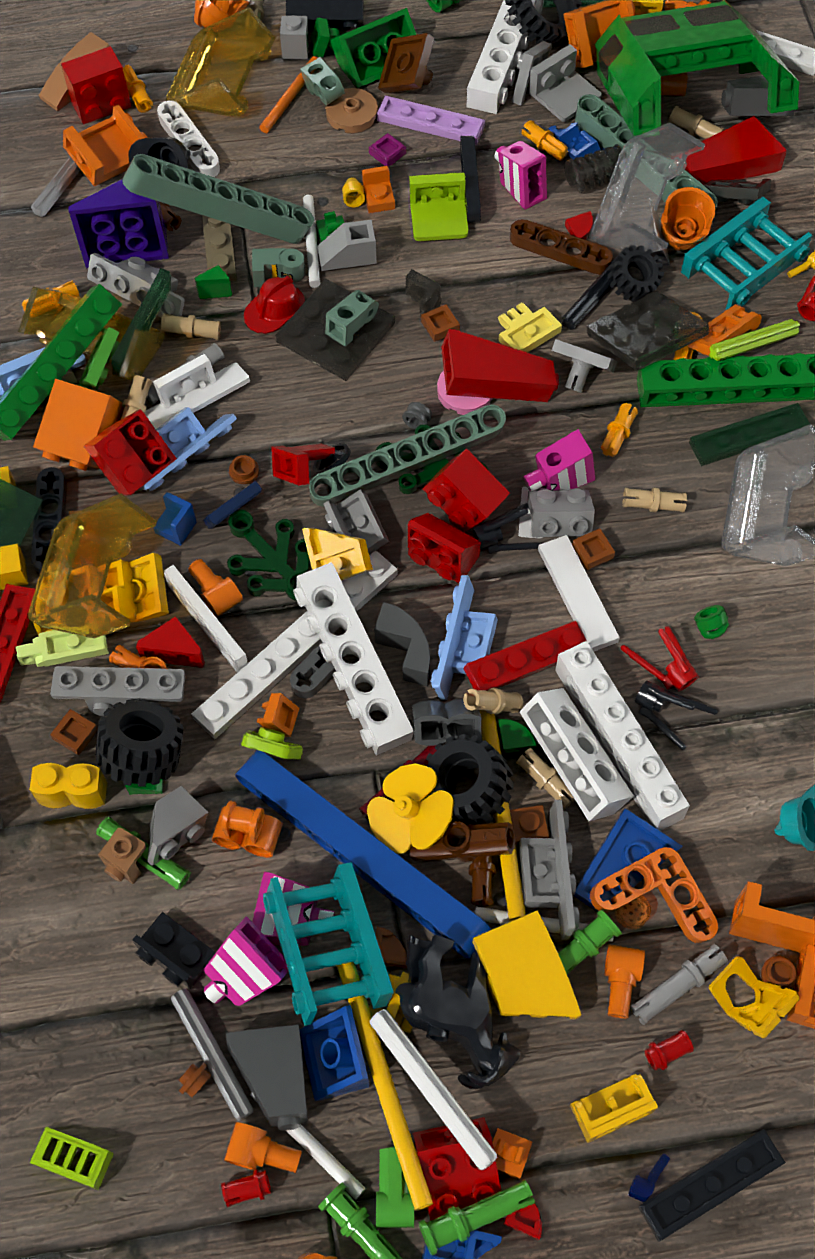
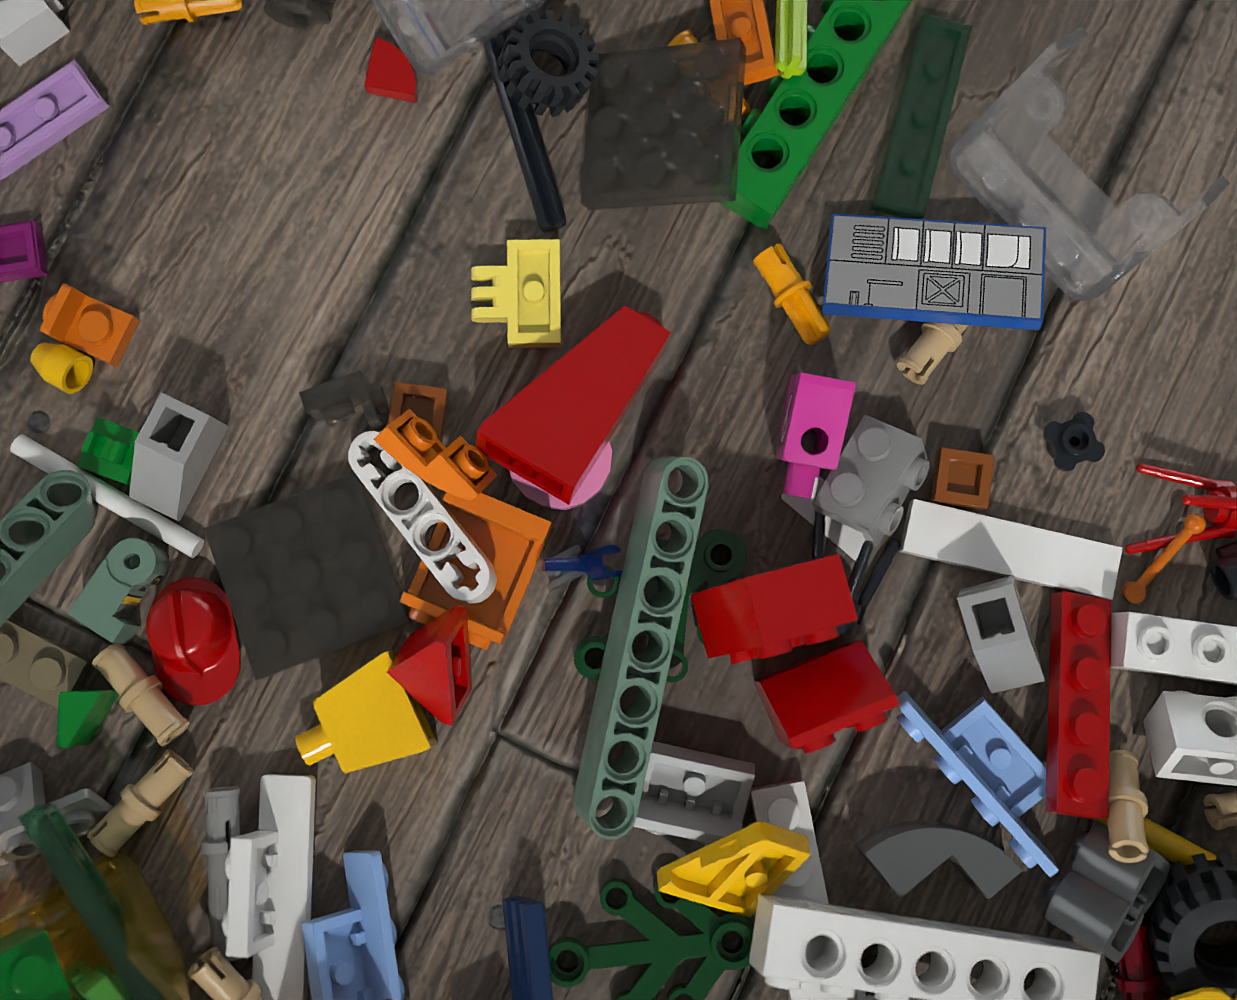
camera: 60 degrees left, 20 degrees up
(237, 299) = (140, 693): none -> tan pin
(243, 469) = (471, 892): dark orange plate -> none
(292, 383) = (366, 720): none -> yellow torso
(293, 462) = (531, 778): red piece -> none
(336, 388) = (437, 665): none -> red slope
(350, 316) = (321, 550): sand green leg -> none
(391, 385) = (513, 545): none -> orange panel
(395, 348) = (416, 521): none -> white beam
(424, 413) = (591, 563): none -> clear blue hand
(425, 336) = (454, 469): none -> orange slope
(438, 206) = (199, 260): lime bracket -> none
(469, 167) = (177, 169): black beam -> none
(515, 736) = (1173, 801): green tile -> none
(523, 173) = (231, 83): dark pink torso -> none
(532, 601) = (1000, 634): none -> light grey slope
(562, 242) = (401, 121): reddish brown beam -> none
(583, 361) = (651, 257): light grey tile -> none
(649, 594) = (1059, 445): none -> black plate
(657, 661) = (1135, 591): none -> orange hinge
(679, 474) = (936, 271): none -> tile
(710, 619) = (1179, 403): green tile -> none

